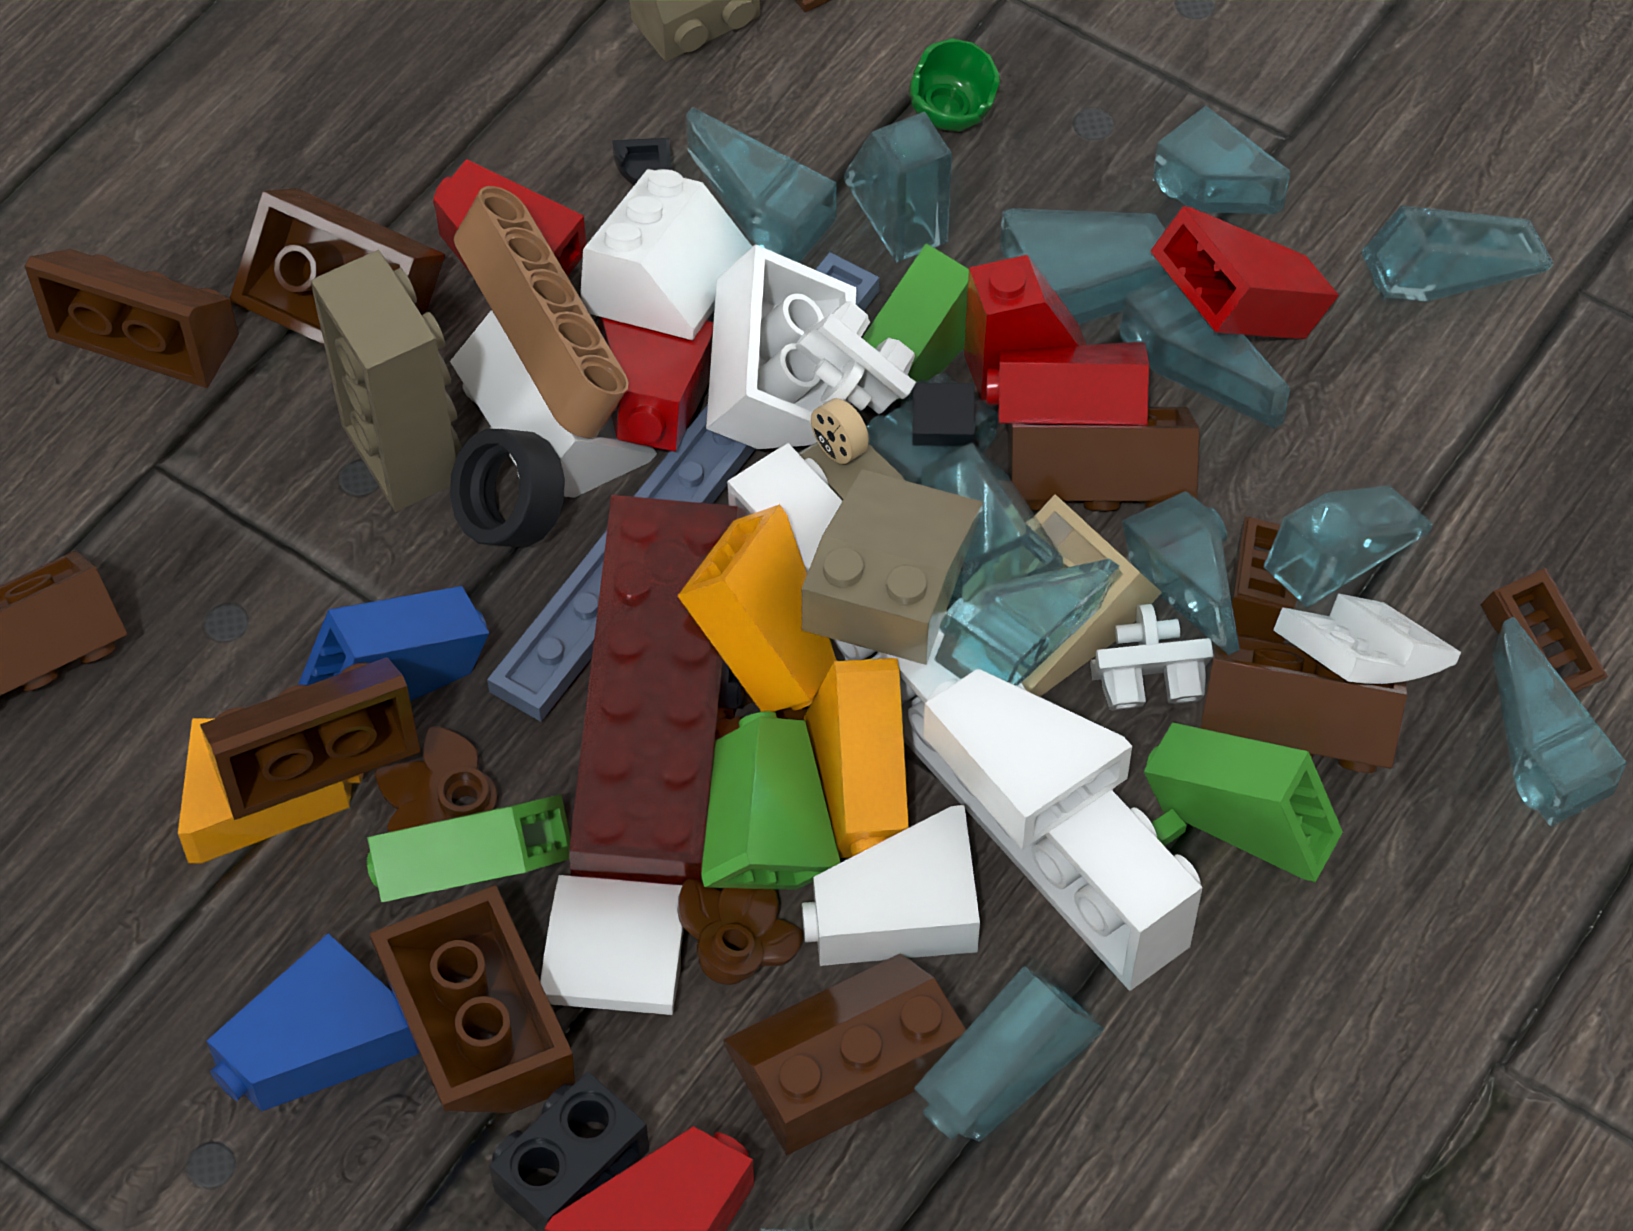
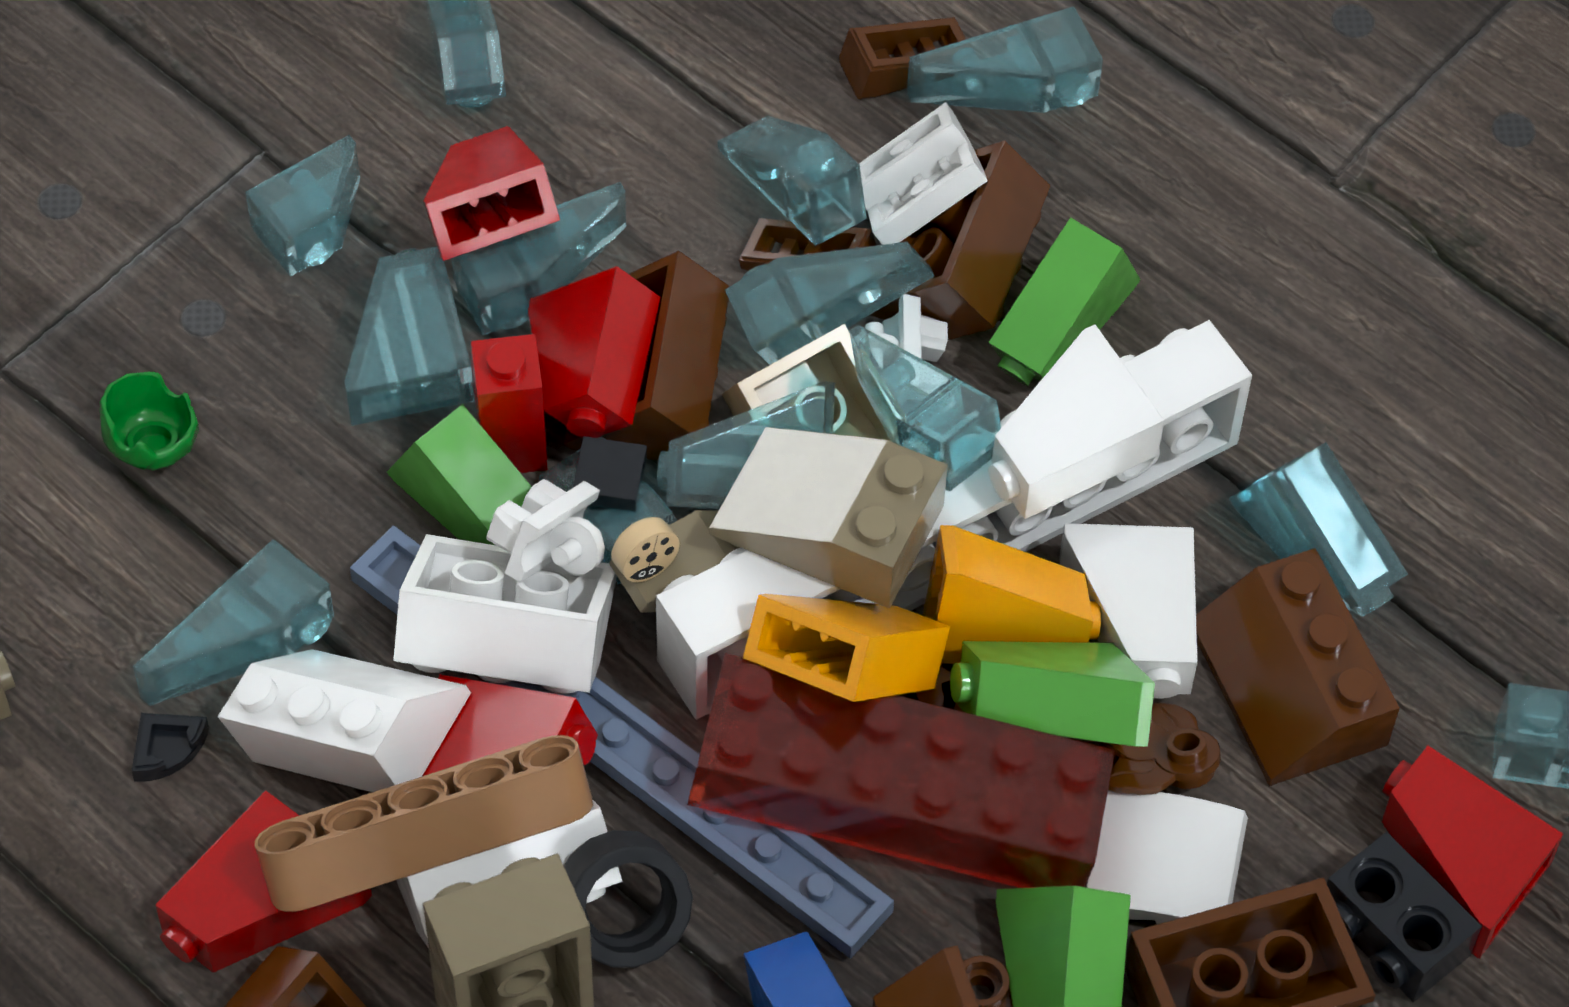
camera: 85 degrees left, 0 degrees up
(904, 185) = (282, 477): clear light blue slope -> none

